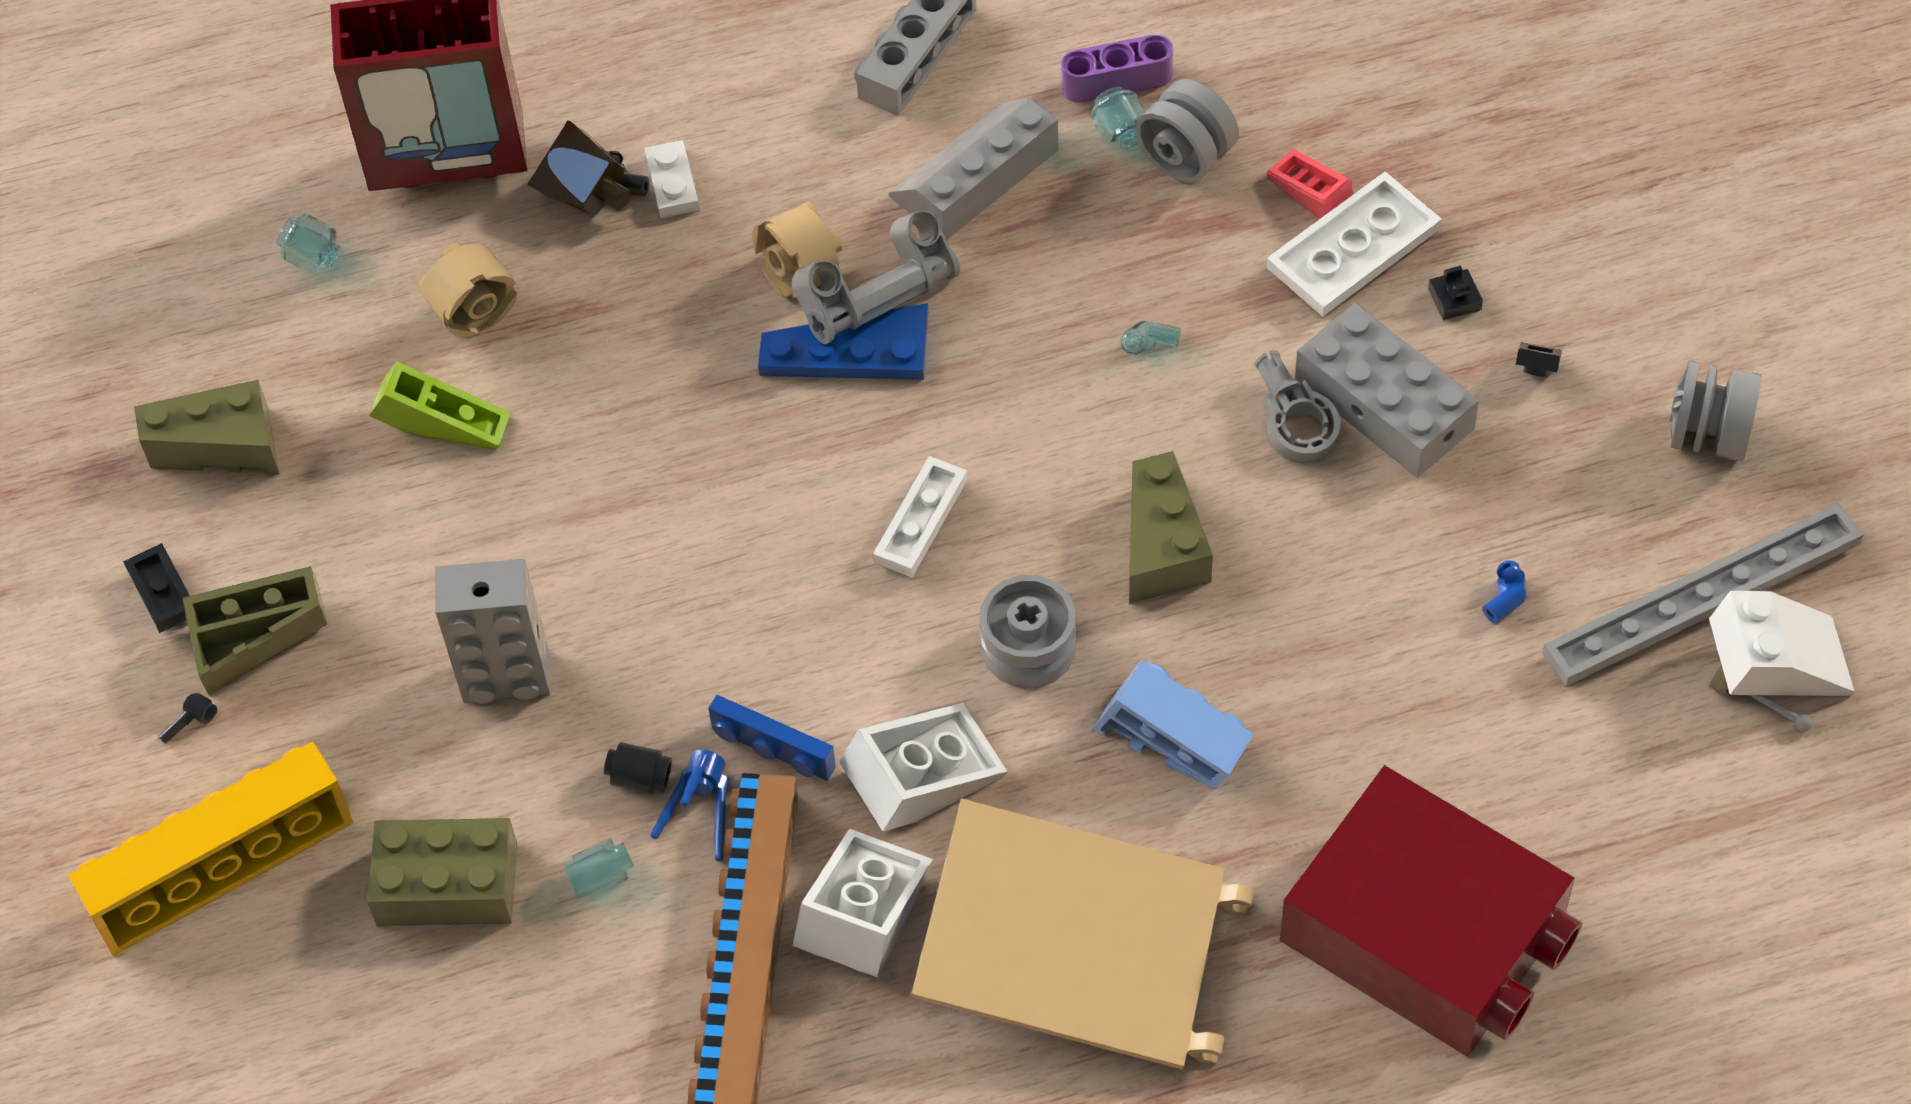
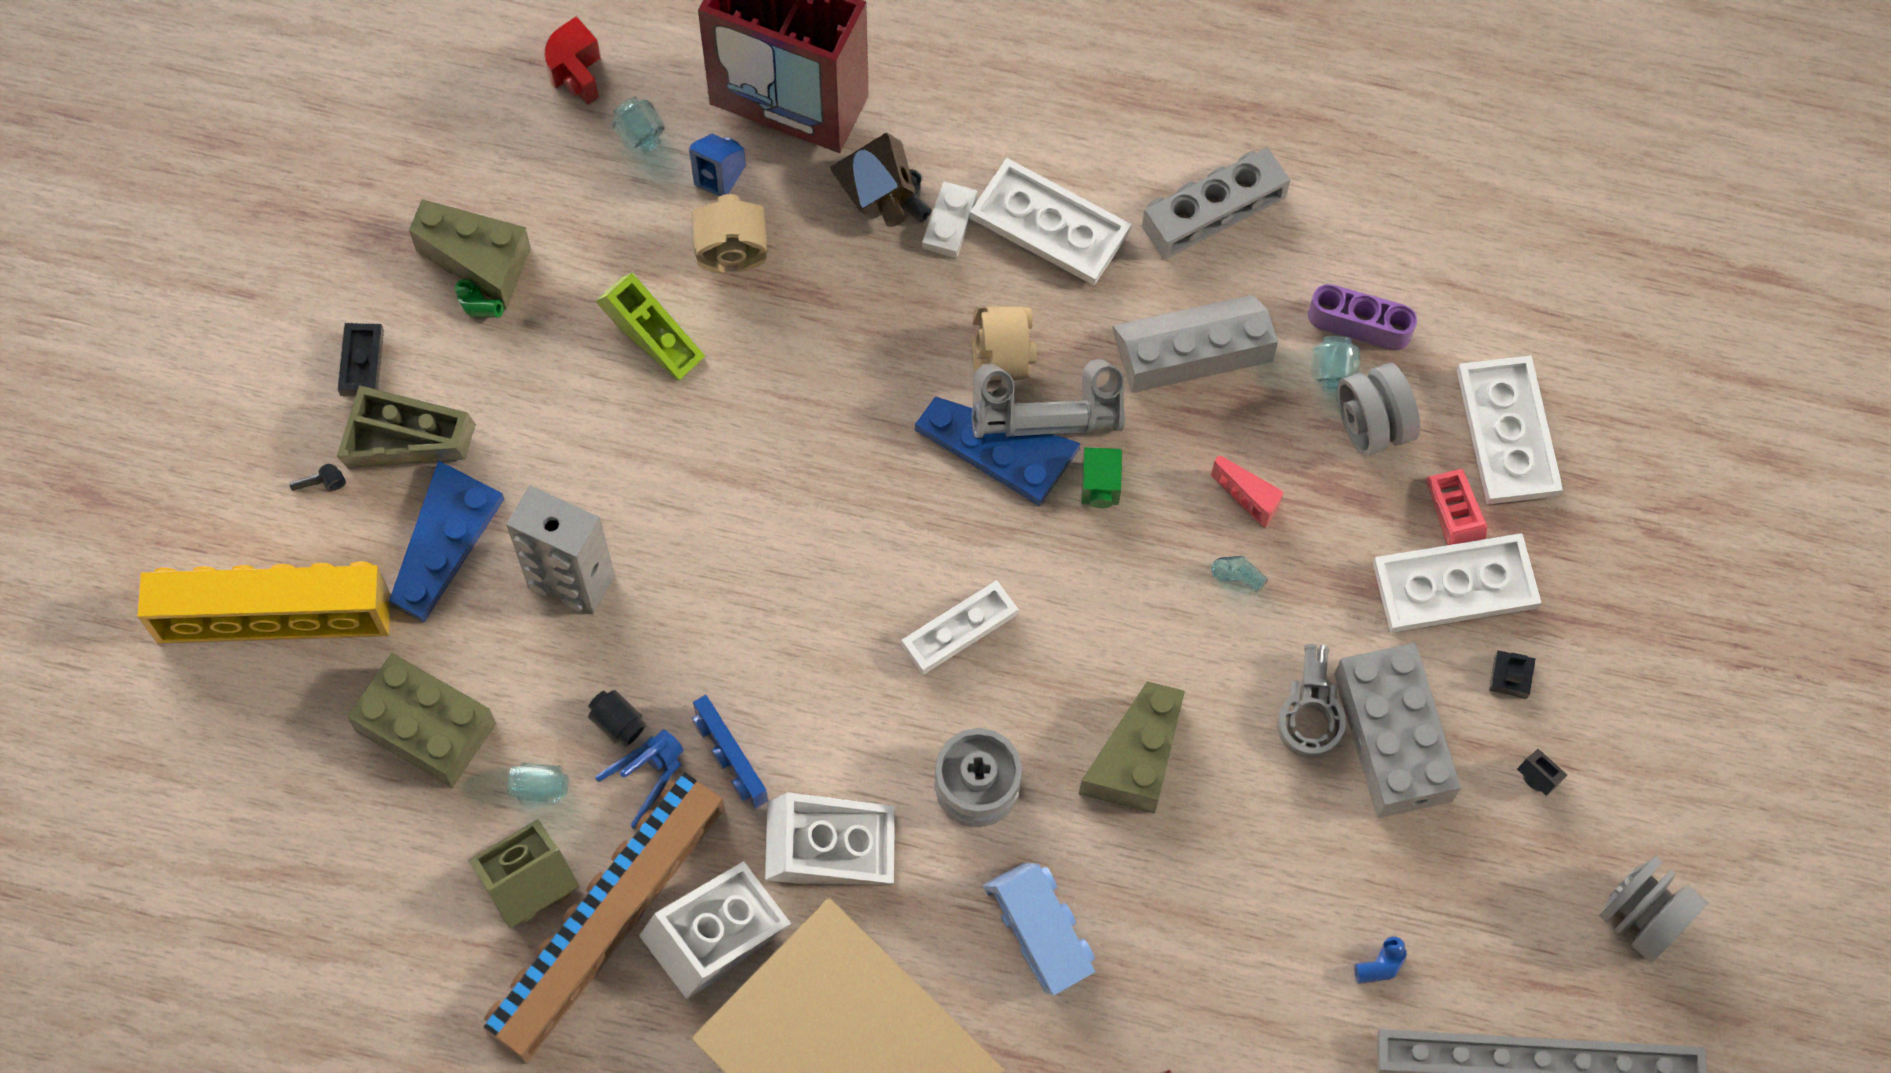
camera: 25 degrees right, 10 degrees up
(200, 218) = (568, 55): none -> red brick
(244, 480) = (475, 303): none -> green arm
(352, 699) = (444, 535): none -> blue wing
(412, 238) = (716, 163): none -> blue slope
(640, 953) = (524, 873): none -> olive slope
(770, 132) = (1050, 221): none -> white plate
(967, 319) = (1101, 477): none -> green brick
(1110, 262) = (1251, 492): none -> coral slope
(1314, 95) = (1509, 430): none -> white plate

